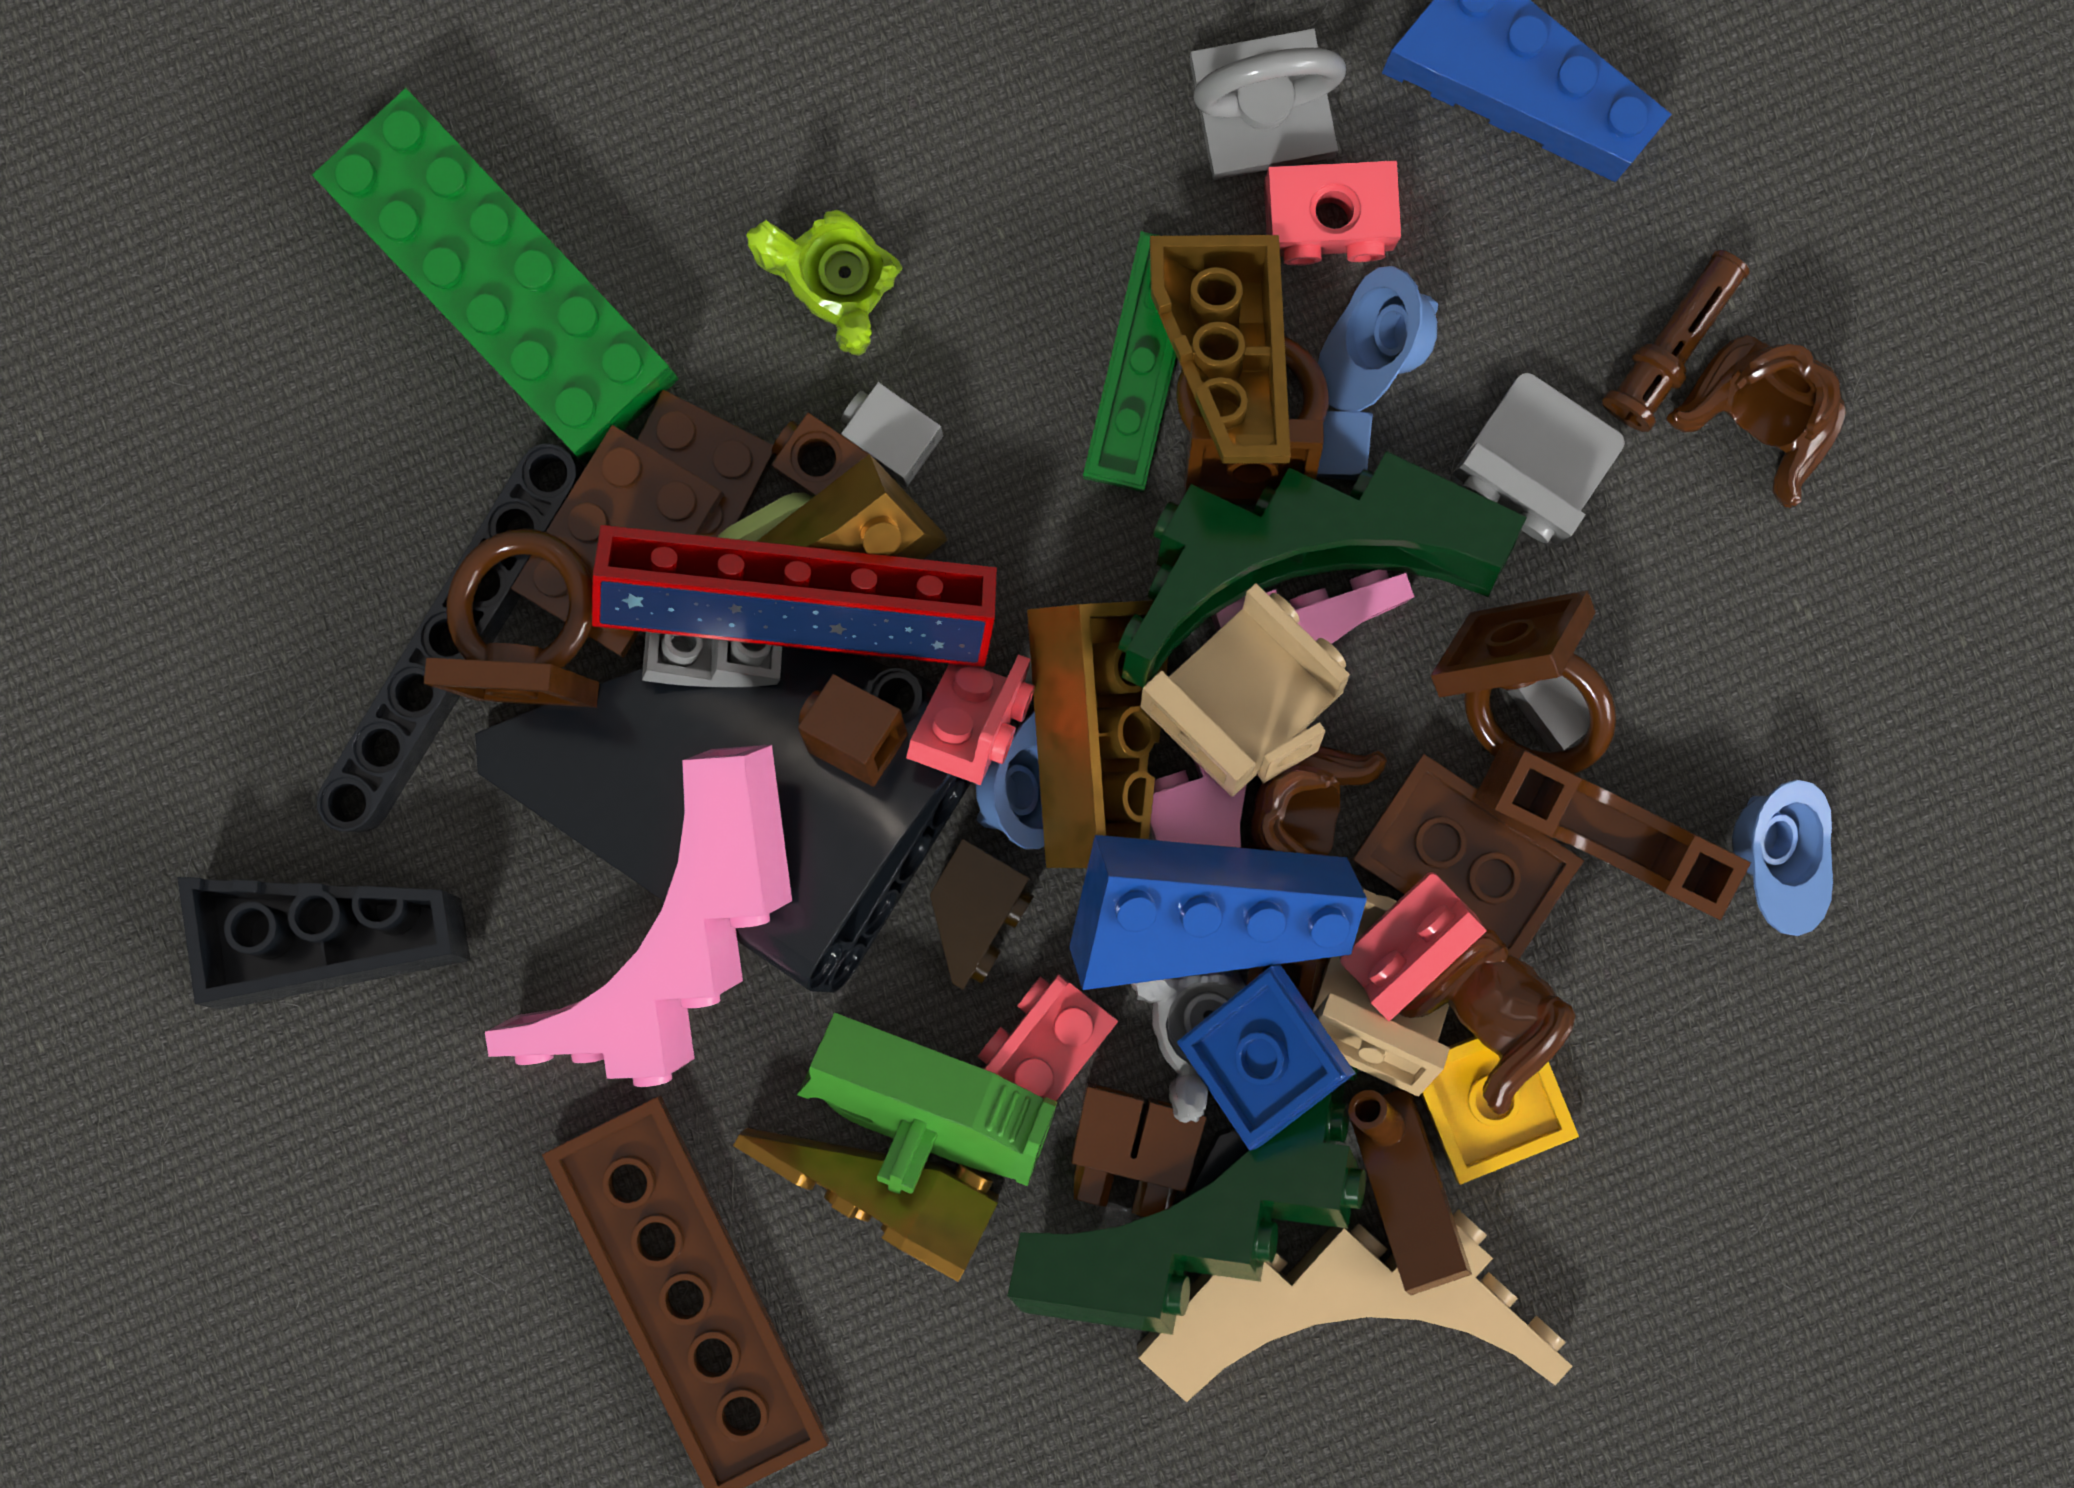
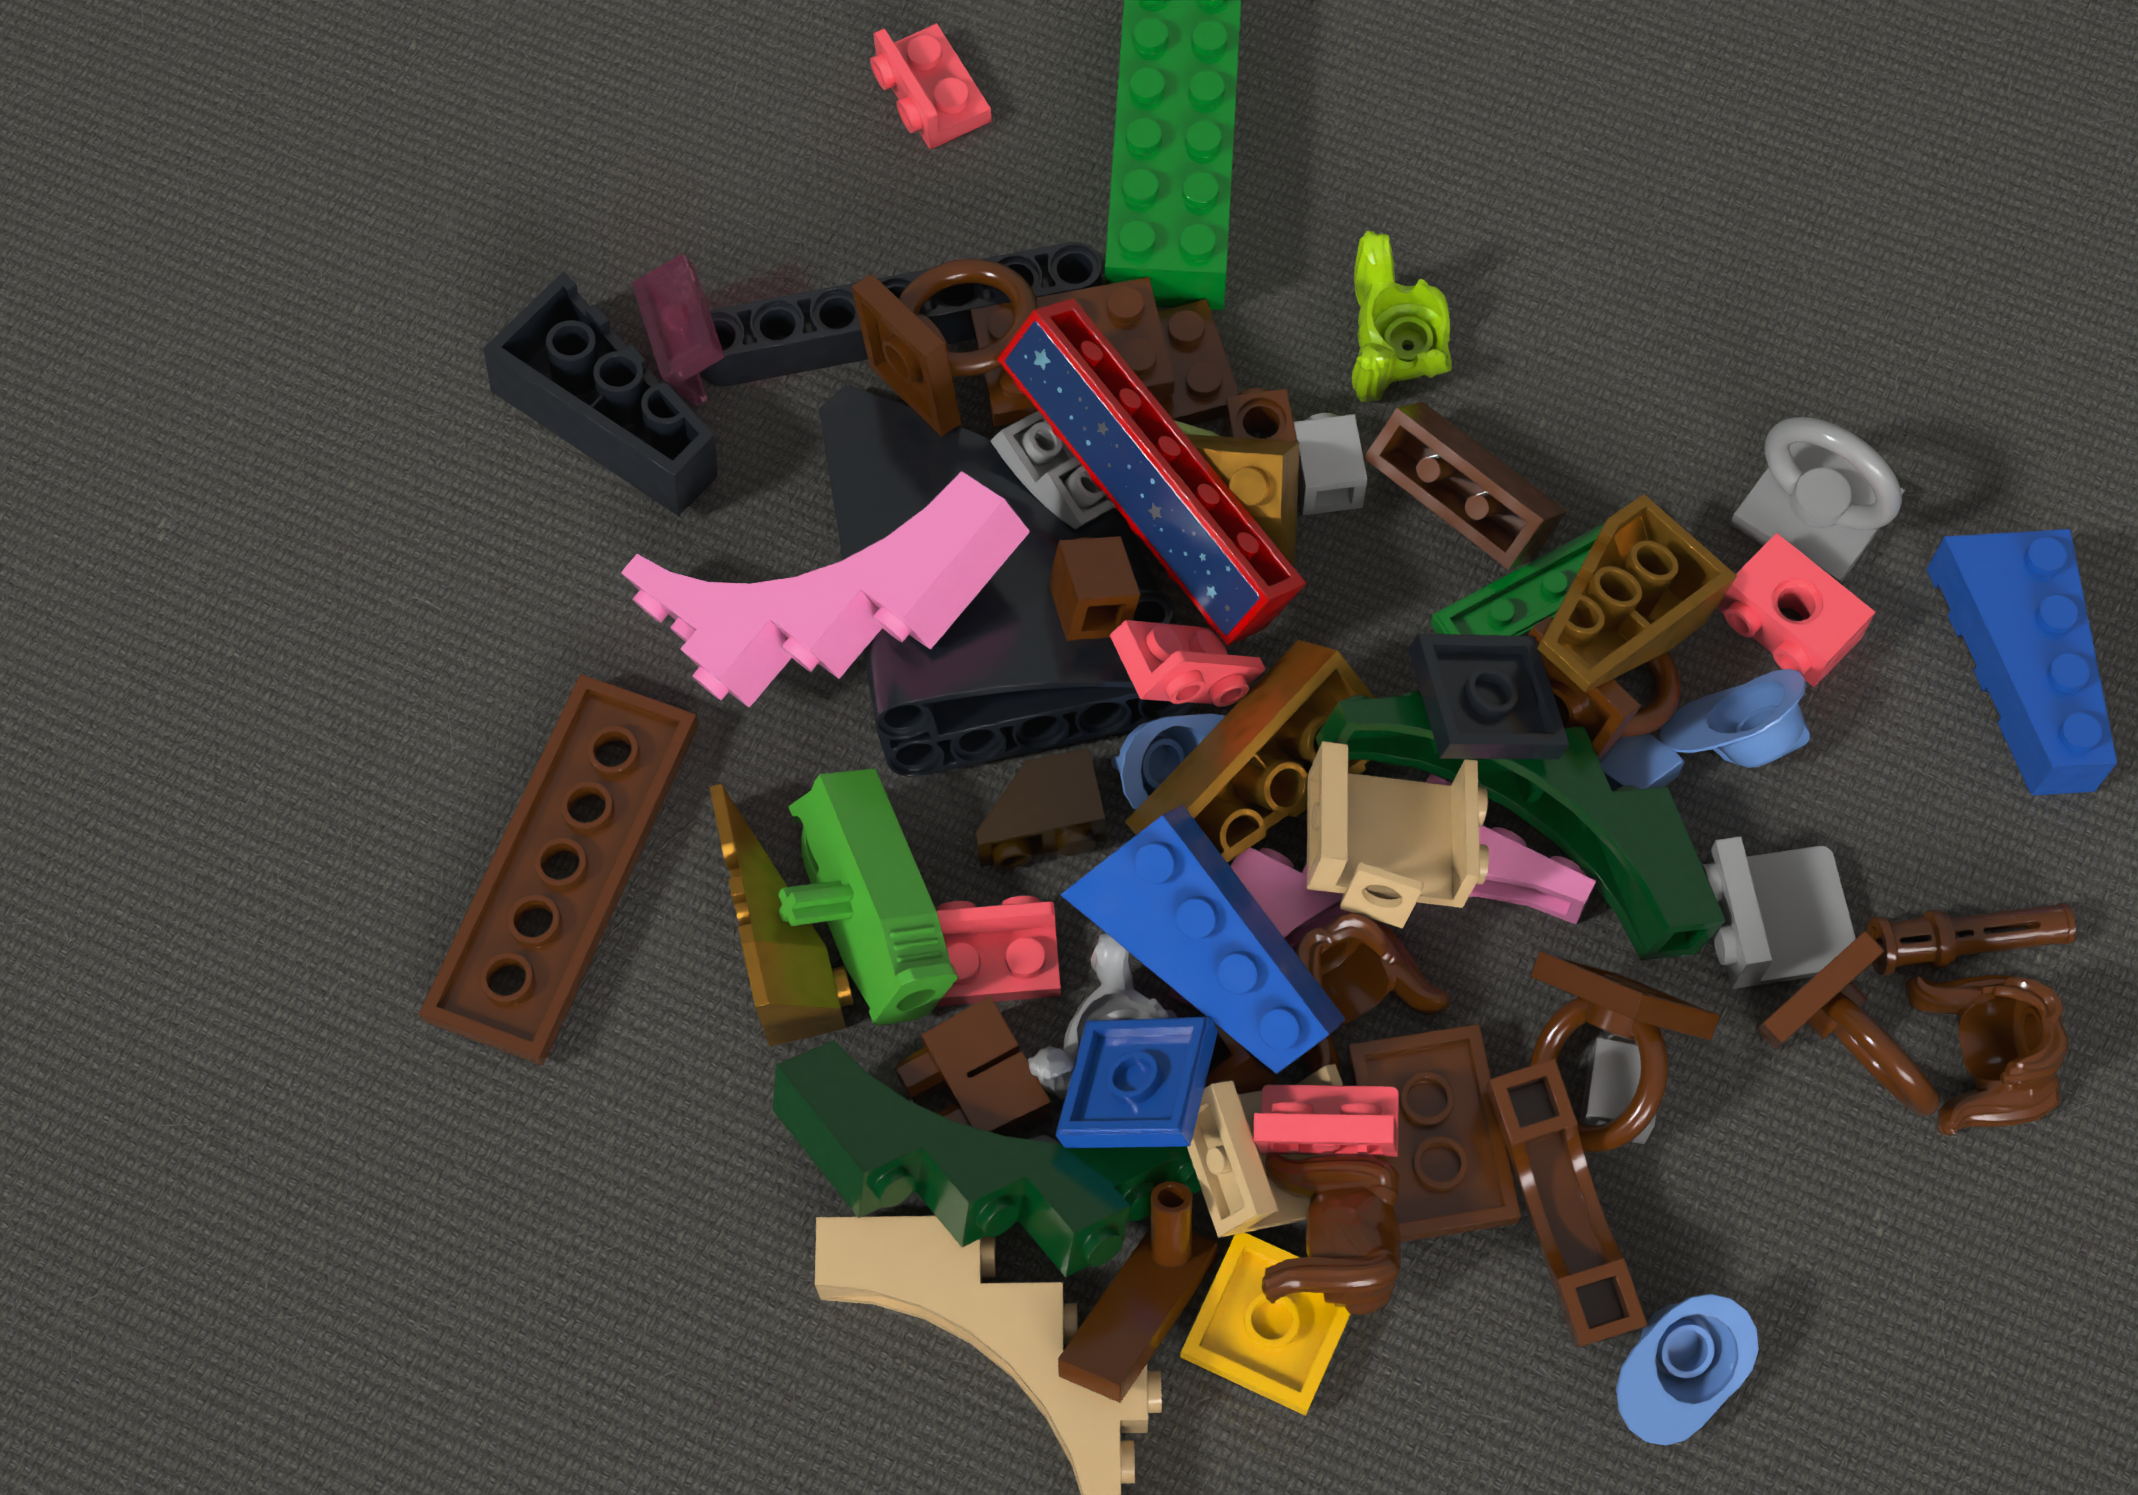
camera: 45 degrees right, 20 degrees down
(261, 419) = (931, 85): none -> coral bracket
(311, 827) = (679, 325): none -> clear pink panel
(1010, 354) = (1464, 484): none -> reddish brown brick
(1218, 530) = (1488, 697): none -> black plate
(1648, 501) = (1833, 1005): none -> reddish brown tile

